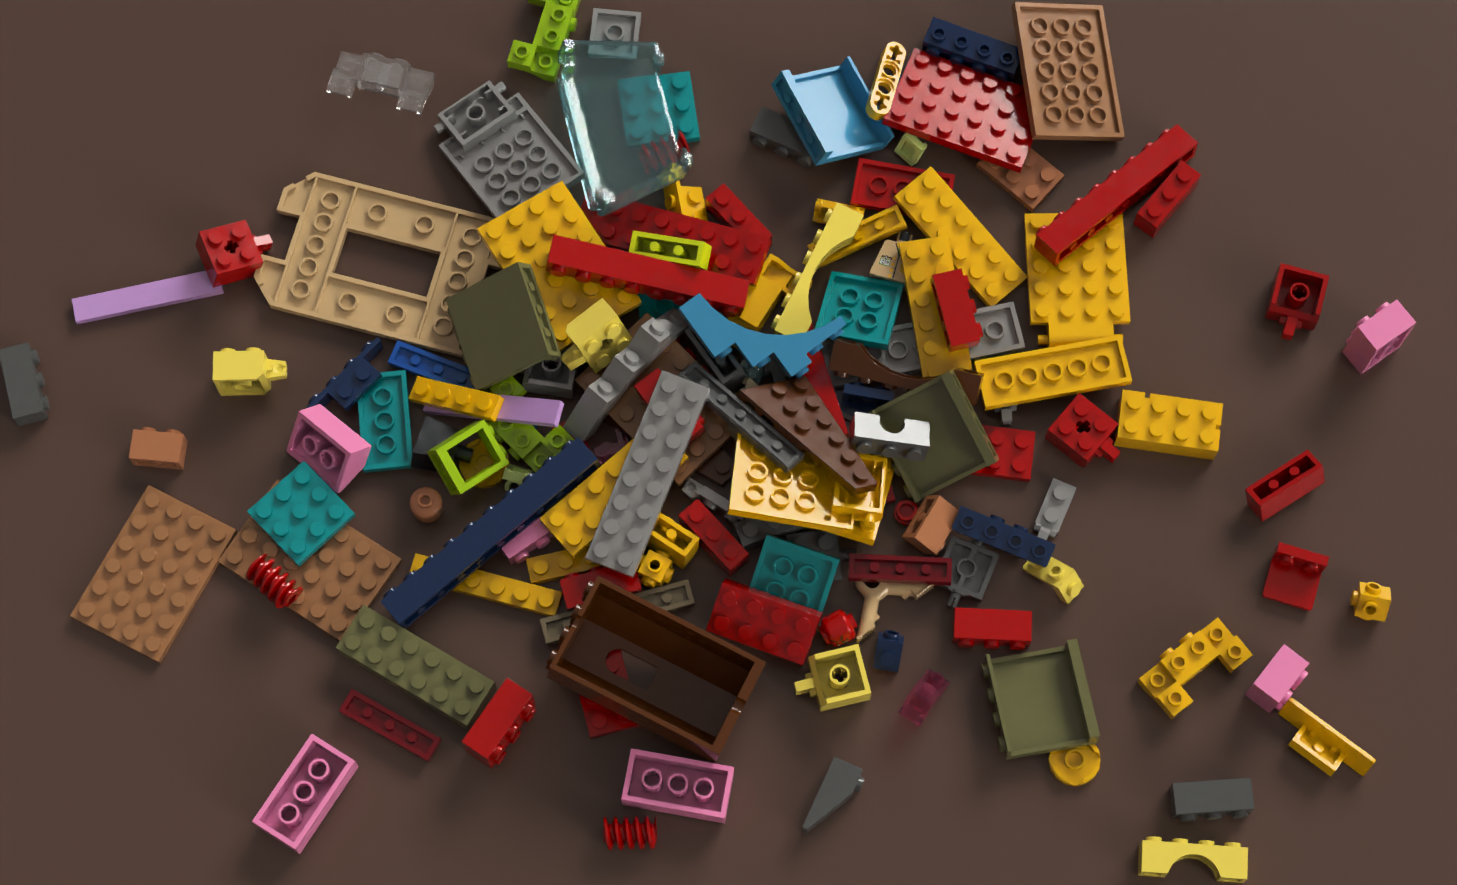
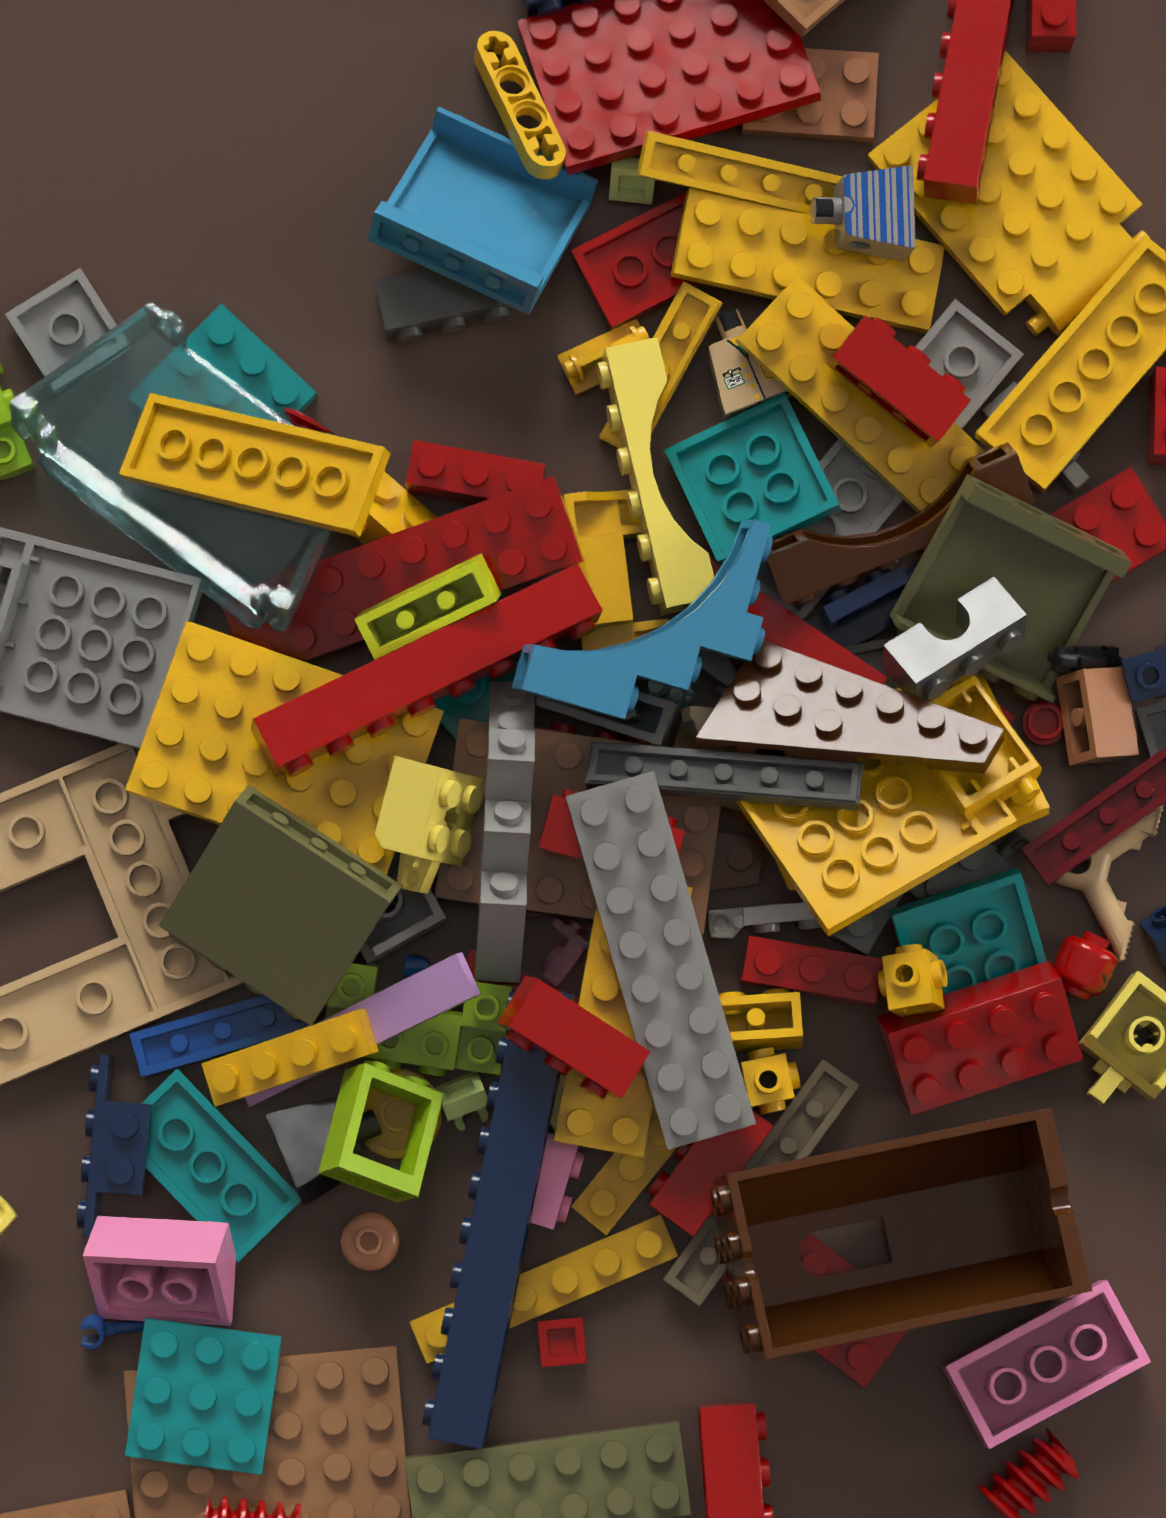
camera: 40 degrees left, 10 degrees up
(283, 455) = (106, 1329): none -> blue hand
(473, 613) = (561, 1342): none -> red plate
(580, 474) = (572, 1039): none -> red brick
(644, 137) = (255, 464): none -> yellow plate
(752, 569) = (913, 981): none -> yellow brick
(935, 486) = (1074, 658): none -> black axle
(968, 190) = (732, 173): none -> yellow plate
(1002, 233) = (871, 212): none -> light grey torso

